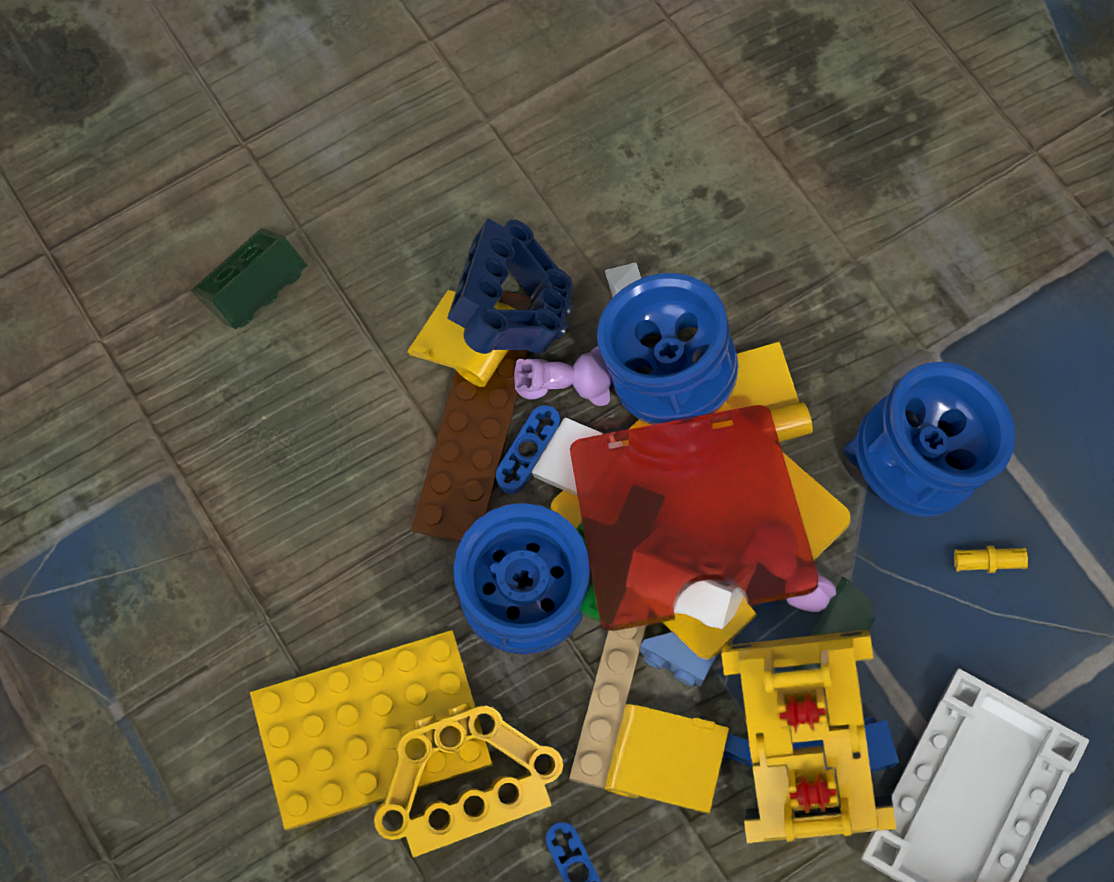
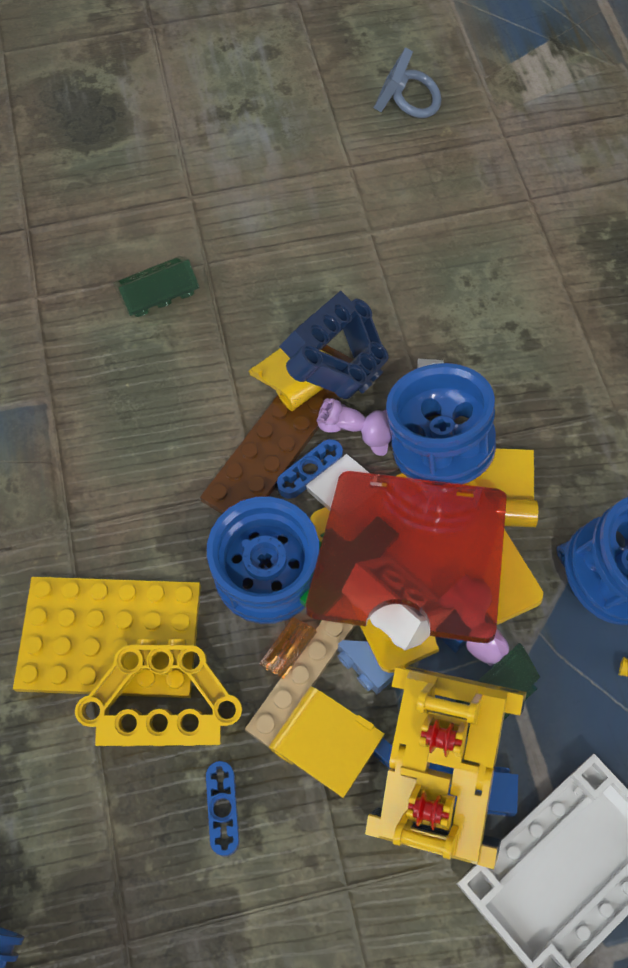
camera: 20 degrees right, 5 degrees down
(588, 669) = (291, 649): none -> clear orange tile

